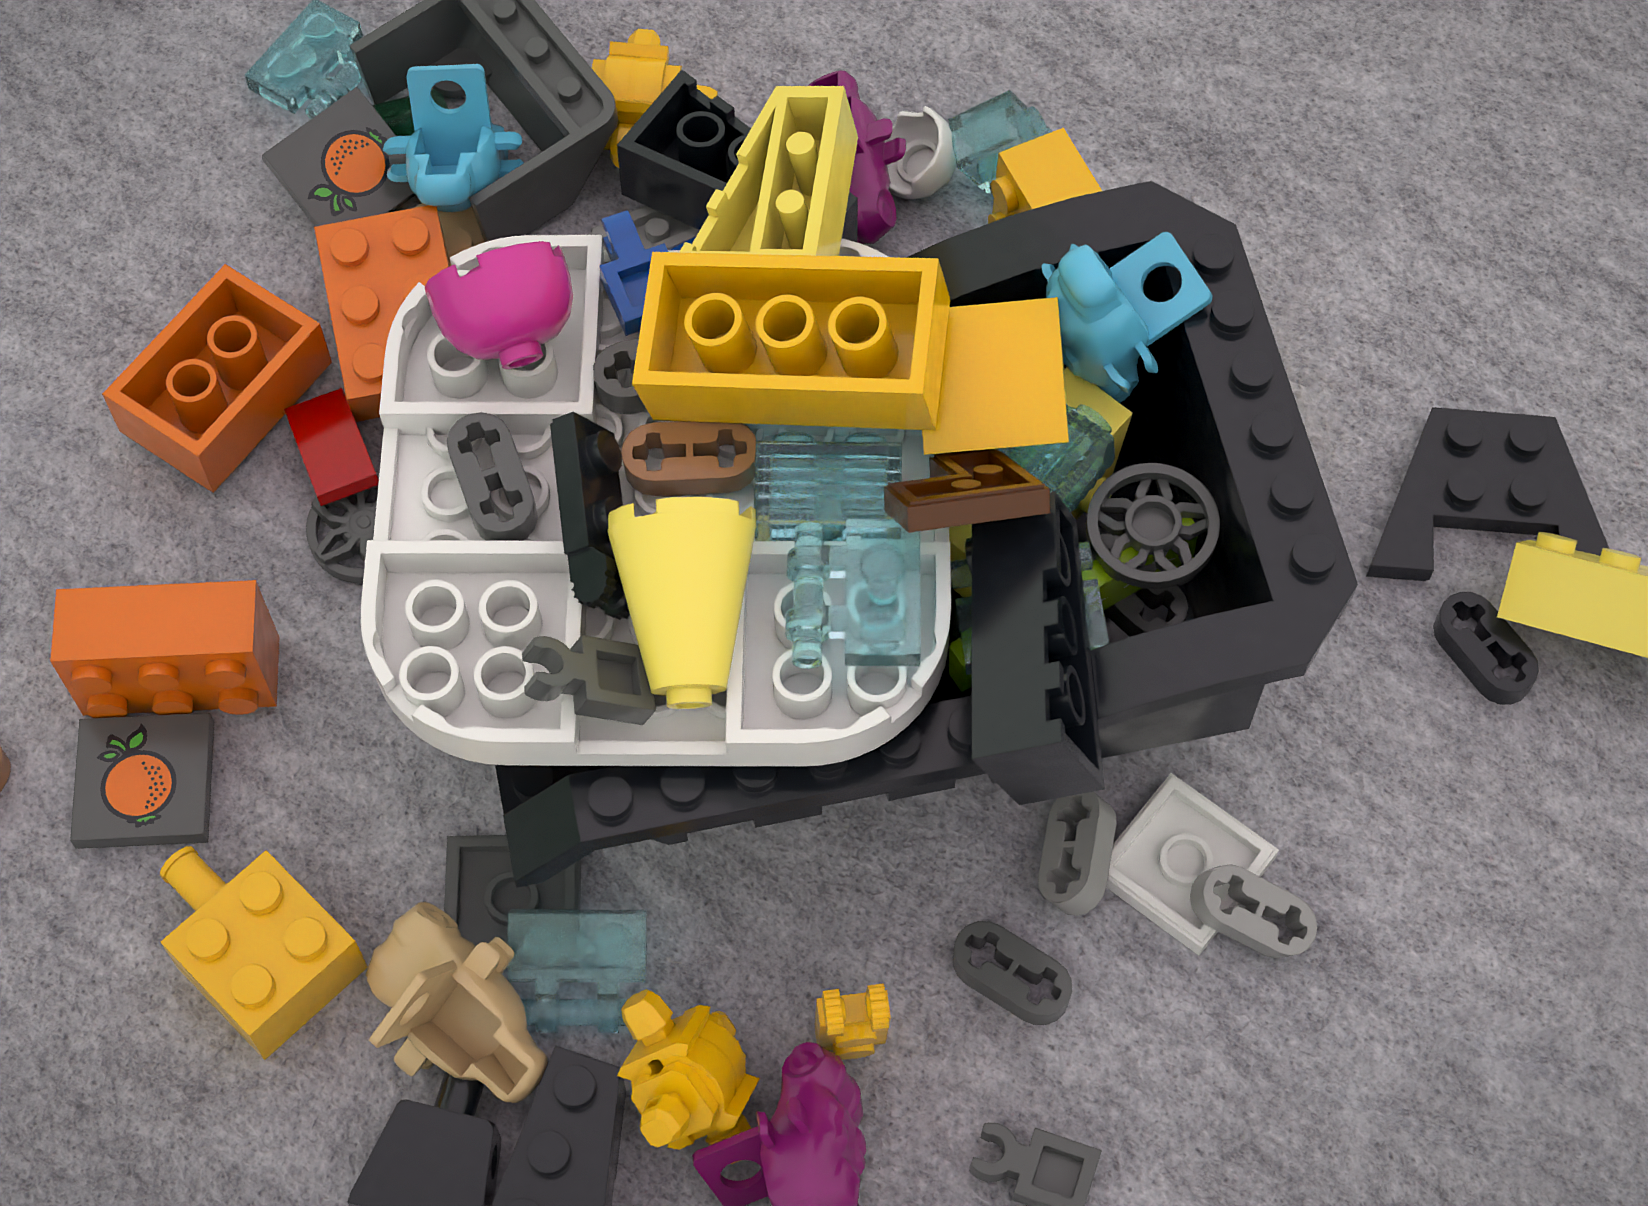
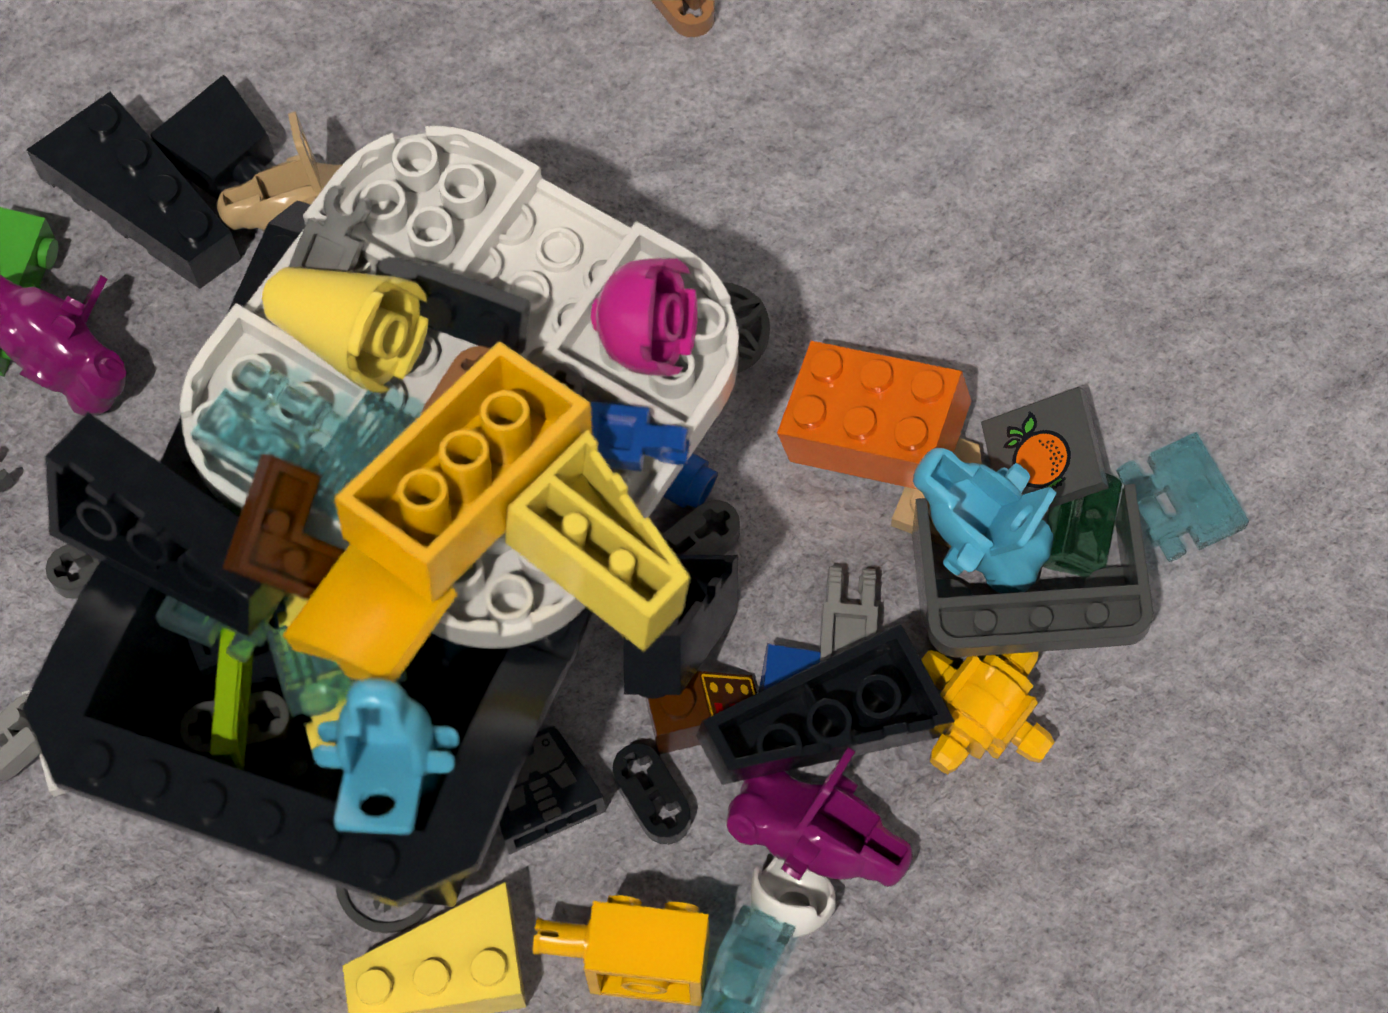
camera: 125 degrees right, 5 degrees up
(142, 781) = (613, 103): dark grey tile -> none
(166, 648) = (681, 139): orange brick -> none
(218, 377) = (897, 273): orange brick -> none
(258, 947) = (437, 90): yellow brick -> none
(331, 447) = (788, 325): red slope -> none
(478, 484) = (537, 267): dark grey beam -> none
(685, 1073) = (156, 301): yellow piece -> none
(852, 1021) = (113, 401): yellow hinge -> none
(1152, 526) = (230, 713): dark grey wheel -> none

